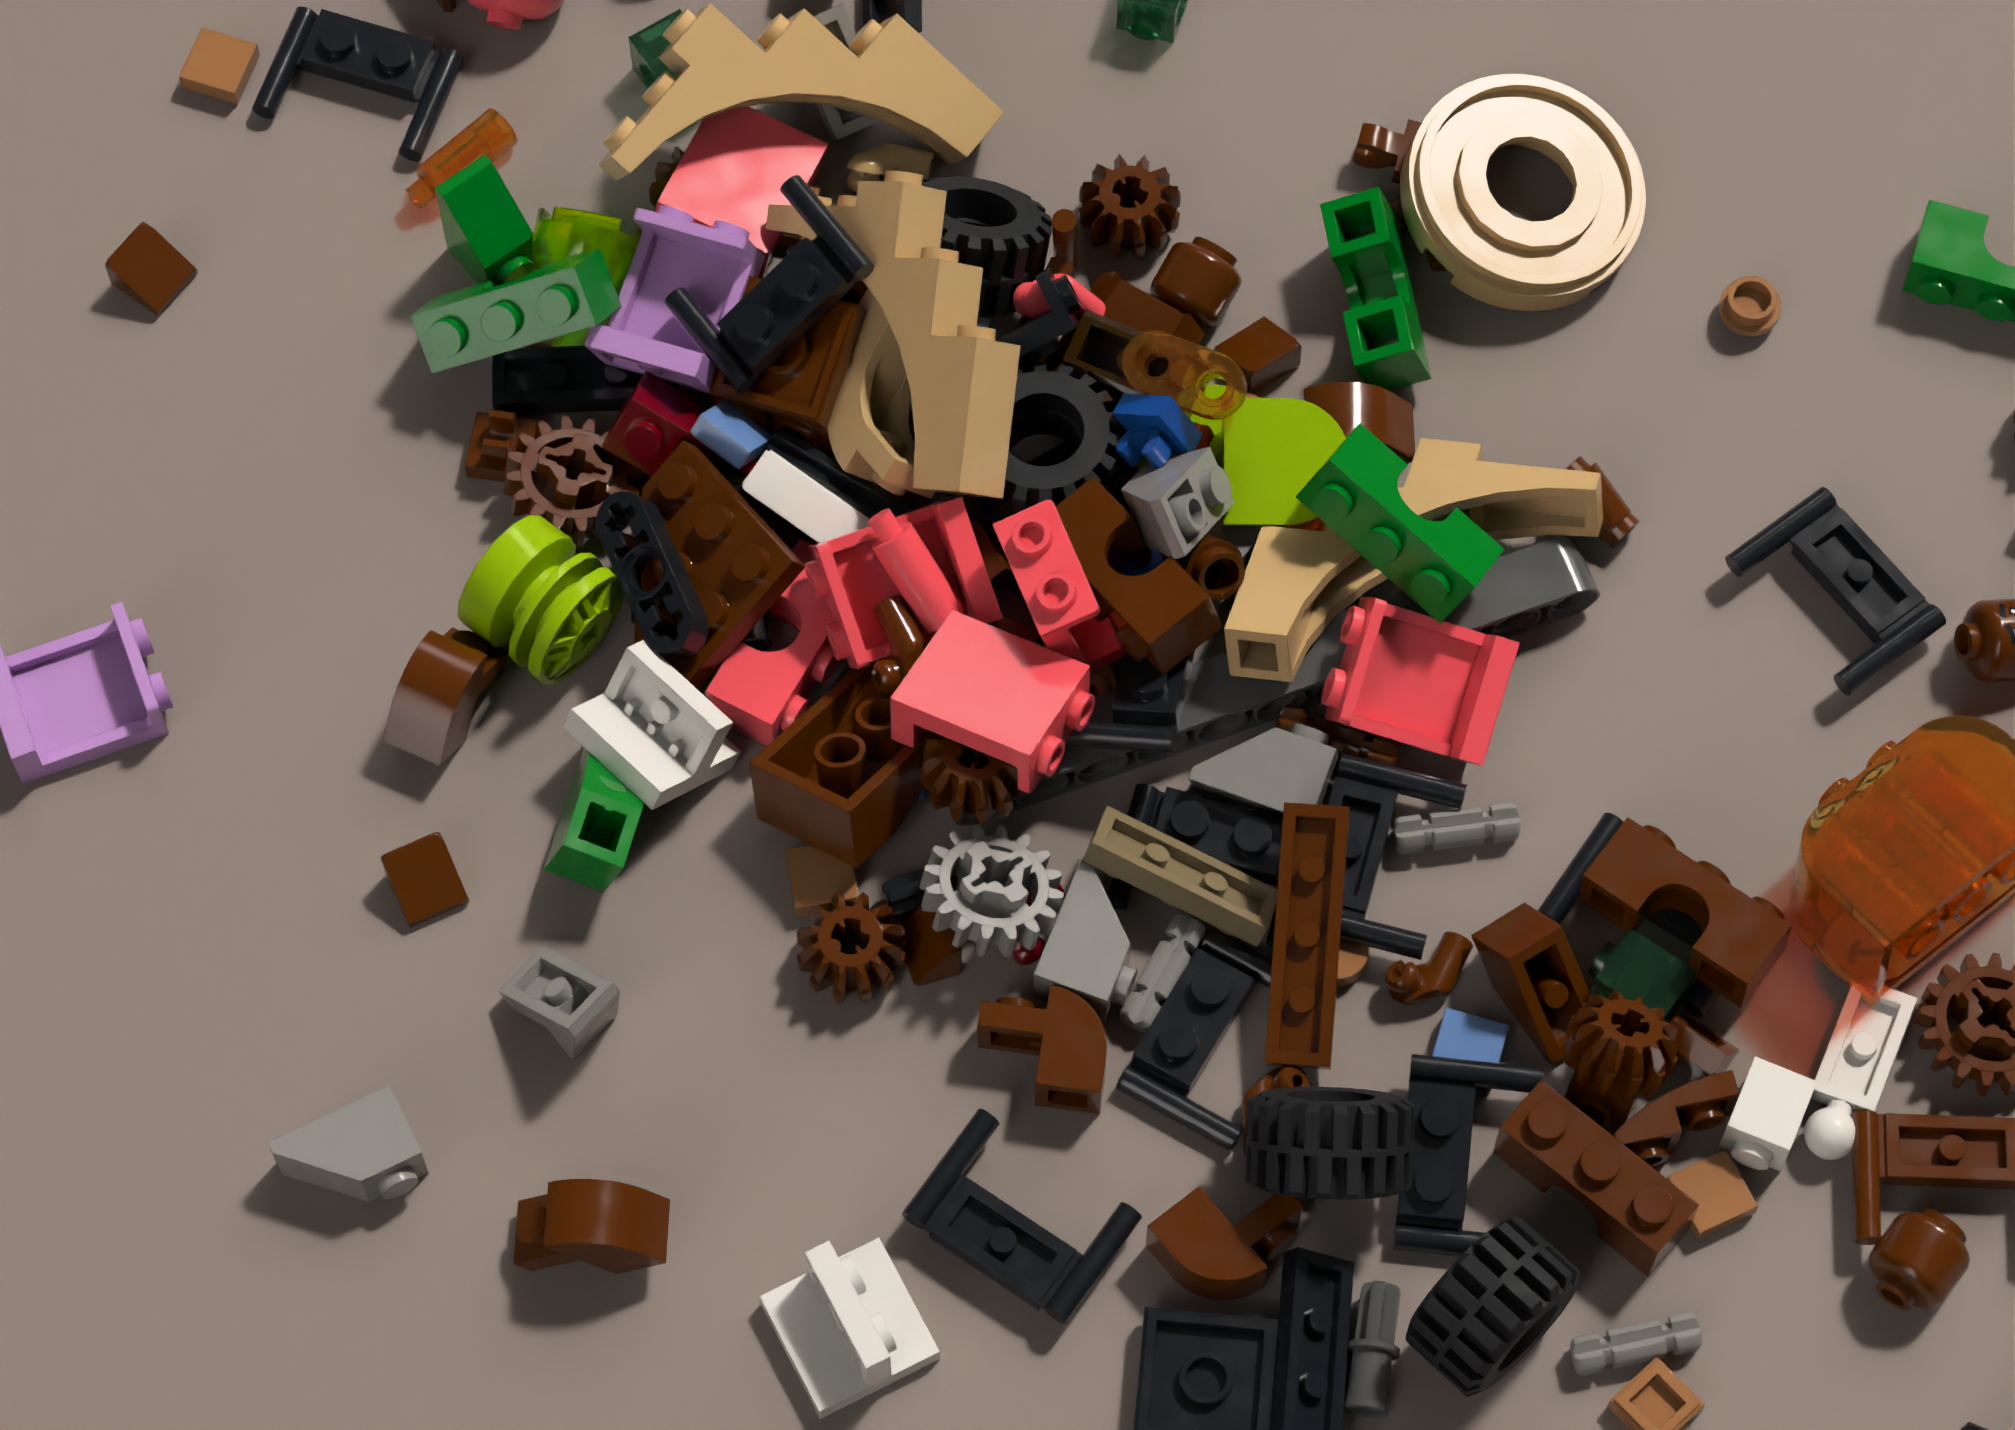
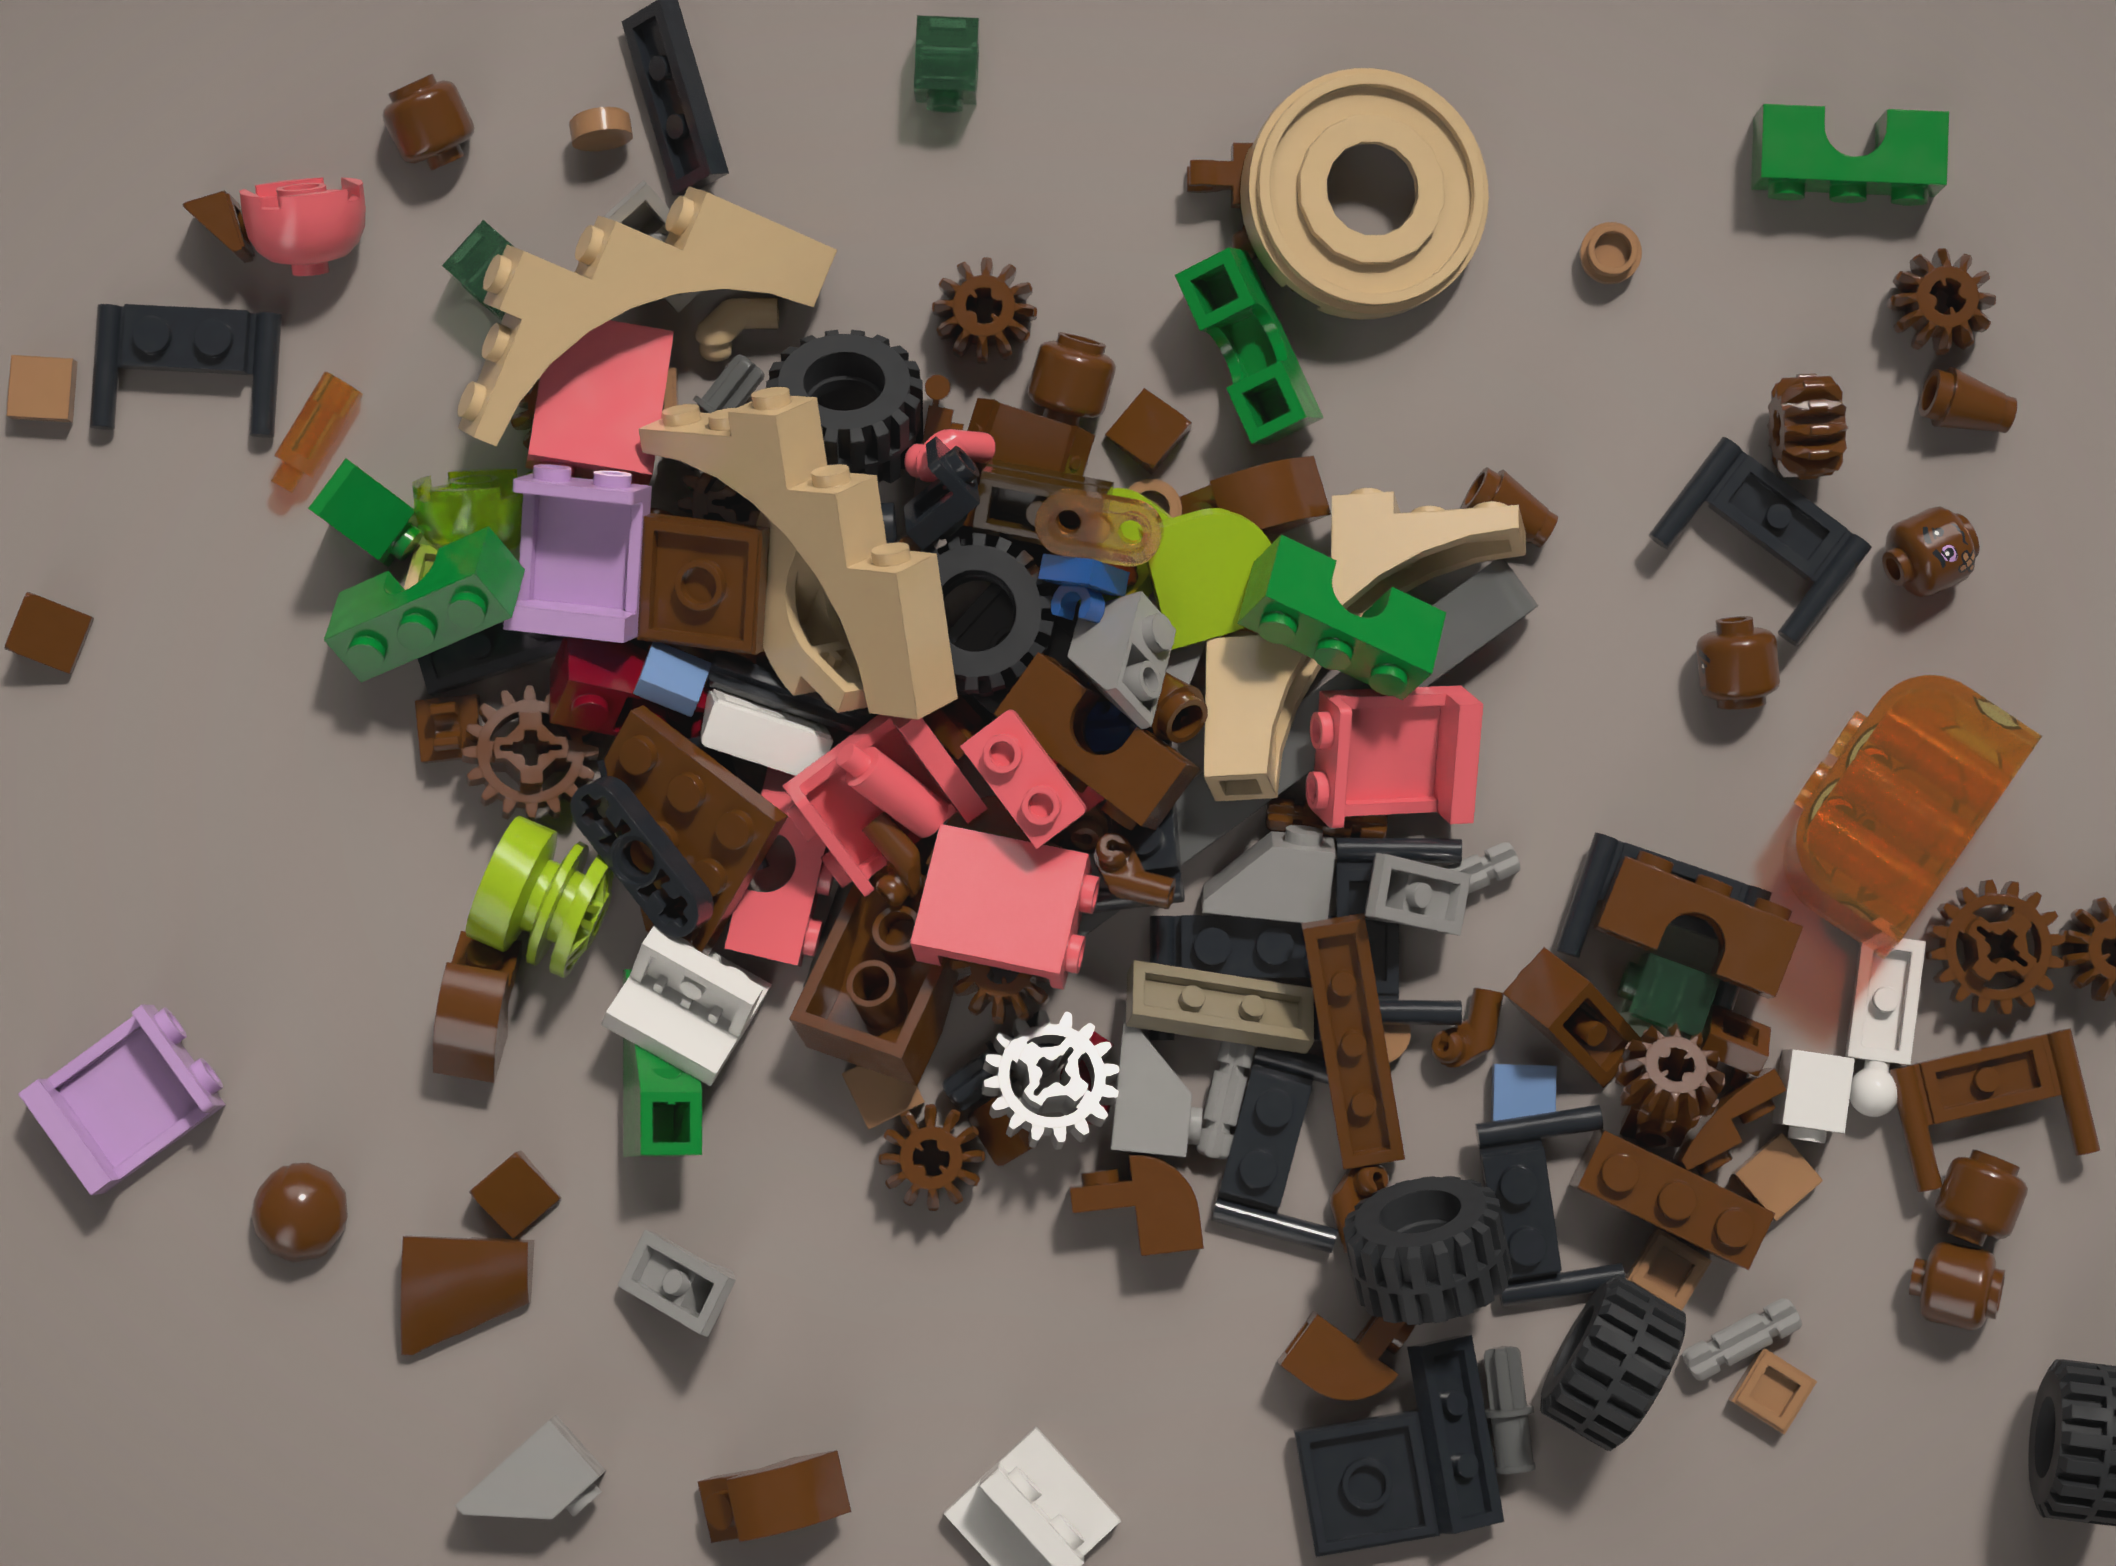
camera: 15 degrees left, 20 degrees up
(206, 844) = (299, 1212): none -> reddish brown hair
(343, 948) = (459, 1285): none -> reddish brown slope
(784, 301) = (689, 548): black plate -> none
(1003, 1240) = (1152, 1401): black plate -> none
(1121, 704) = (1126, 875): none -> reddish brown arm
(1404, 806) = (1417, 895): none -> light grey slope
(1586, 1251) = (1668, 1268): none -> medium nougat tile
(1786, 694) = (1738, 664): none -> reddish brown head
(1875, 1342) = (1958, 1285): none -> reddish brown head
(1906, 492) = (1807, 426): none -> reddish brown gear

